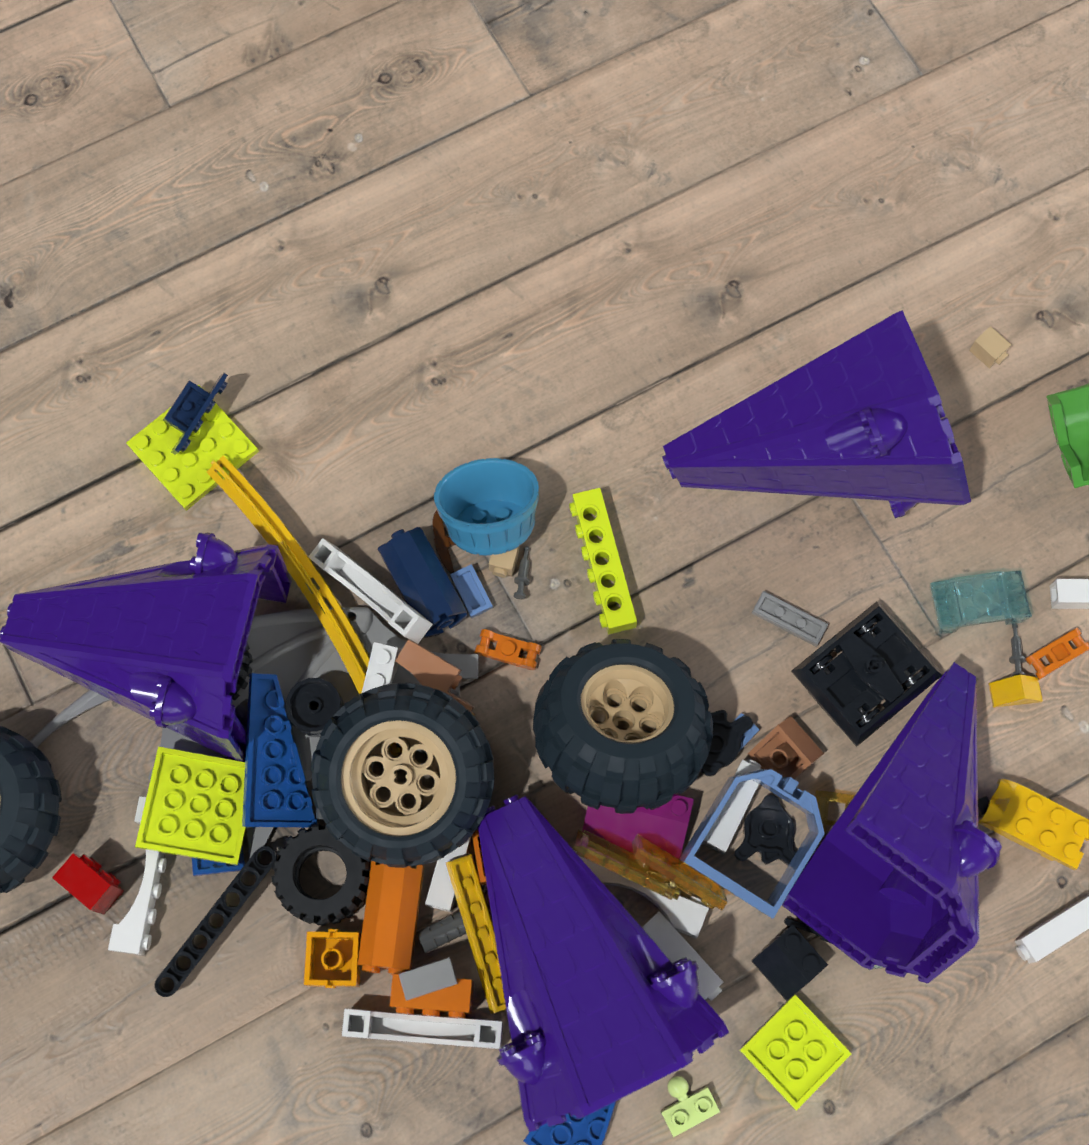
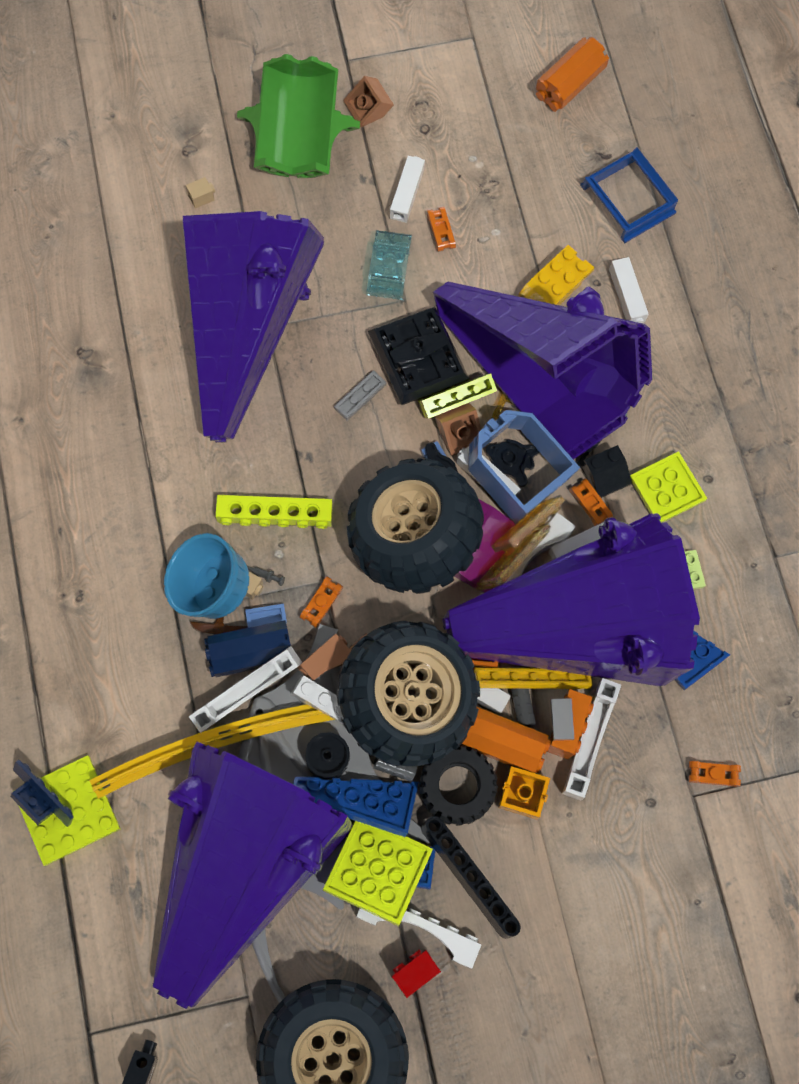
camera: 80 degrees left, 0 degrees up
(741, 951) = (590, 502): none -> orange plate
(827, 737) = (457, 395): none -> neon yellow brick
(1015, 691) = (459, 266): yellow slope -> none
(1016, 657) = (433, 255): dark grey piece -> none

